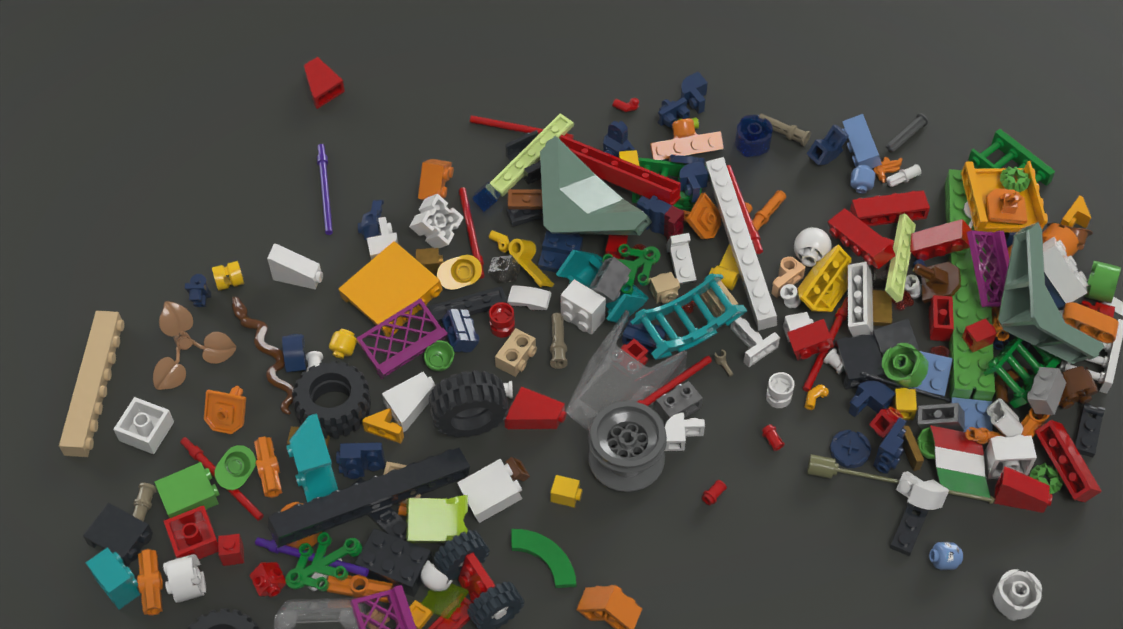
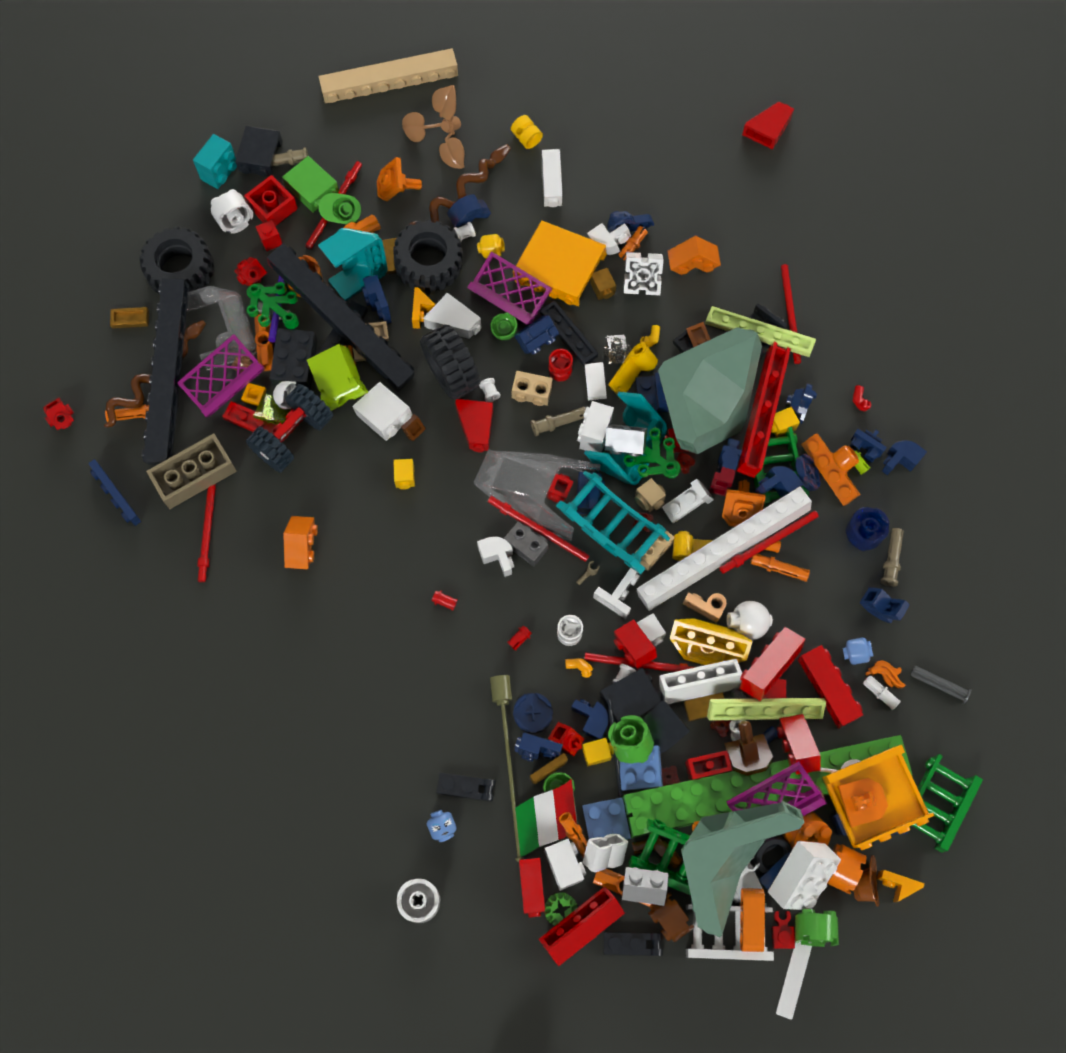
camera: 70 degrees right, 15 degrees up
(144, 425) = (358, 128): white brick -> none
(150, 582) = (239, 183): orange piece -> none
(198, 290) = (498, 114): dark blue hips -> none
(322, 161) = (681, 160): dark purple bar -> none
(396, 225) = (633, 242): none -> orange pin
(459, 272) = (596, 311): yellow piece -> none
(470, 228) = (621, 325): red bar -> none
(486, 196) = (695, 308): clear blue panel -> none
(549, 552) = (342, 480): green tile -> none
(621, 424) = (452, 486): dark grey wheel -> none
(790, 296) = (682, 611): white bush -> none
(861, 142) = (904, 638): medium blue brick -> none
(921, 493) = (496, 790): white brick -> none
(942, 415) = (586, 789): flat silver brick -> none
(979, 335) = (689, 805): red brick -> none
(1008, 180) = (901, 813): bright green gear -> none

